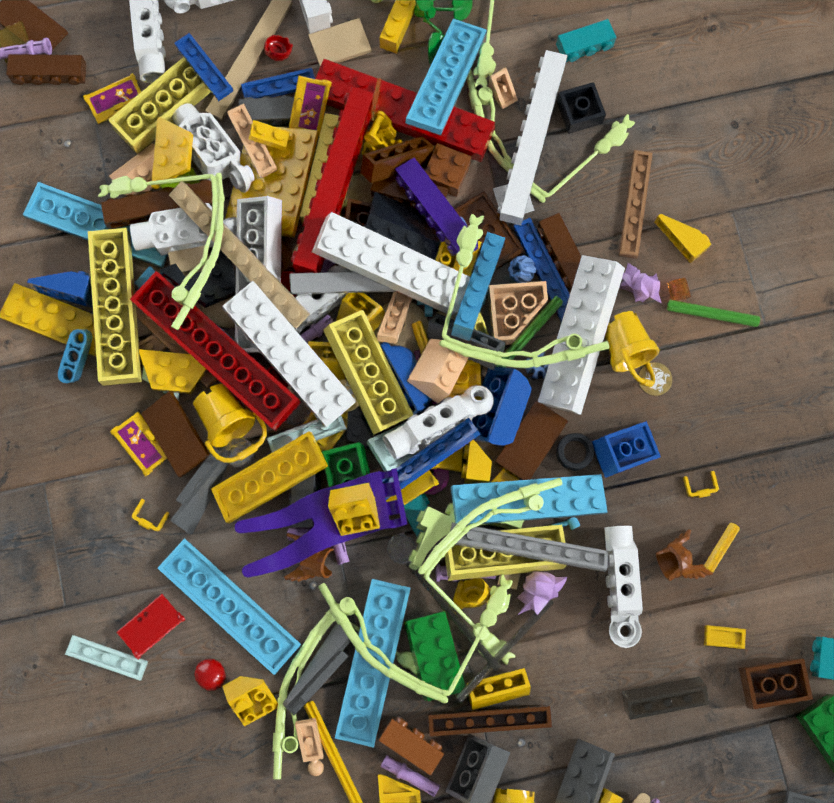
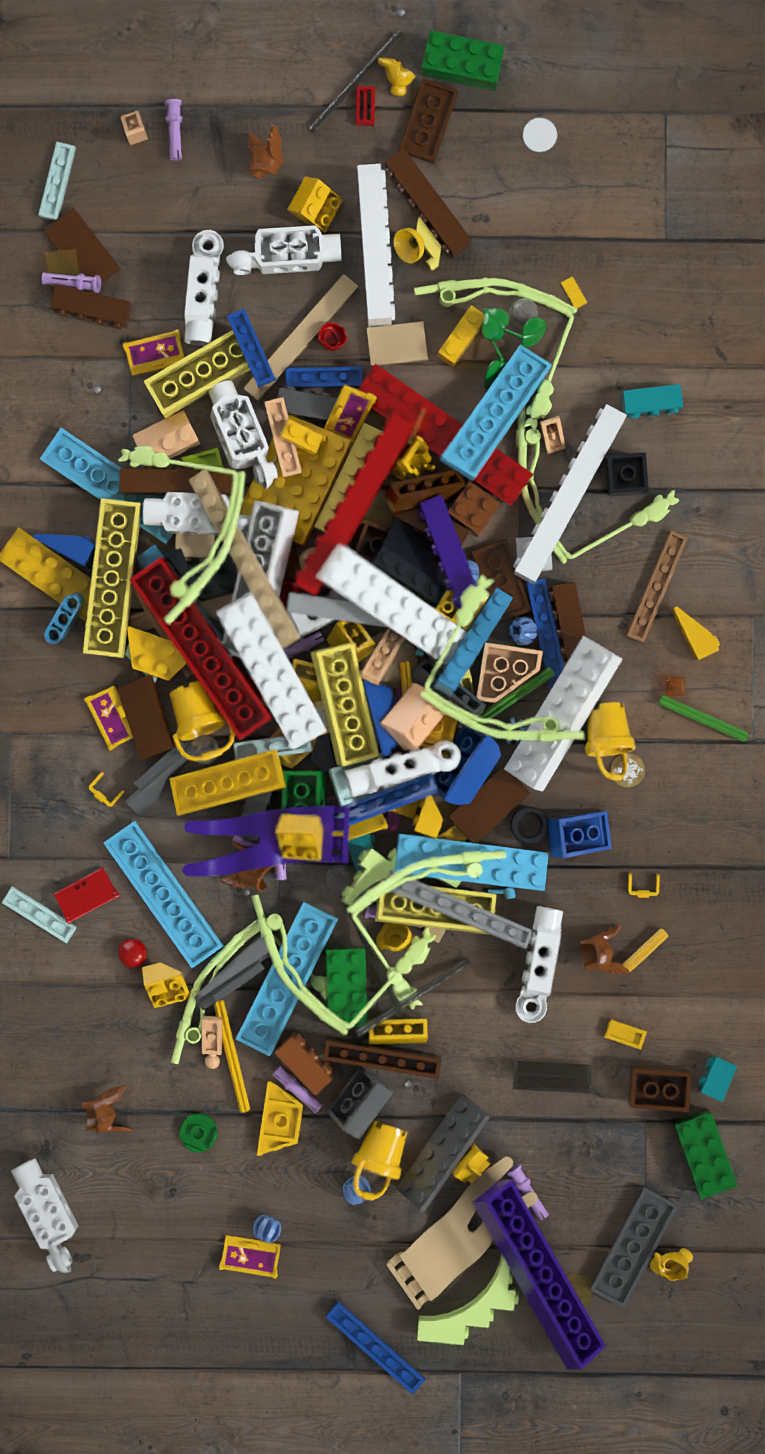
camera: 25 degrees right, 10 degrees up
(171, 151) = (200, 432): yellow wing -> none
(539, 590) = (460, 949): lavender hair -> none
(640, 284) = (637, 673): lavender hair -> none

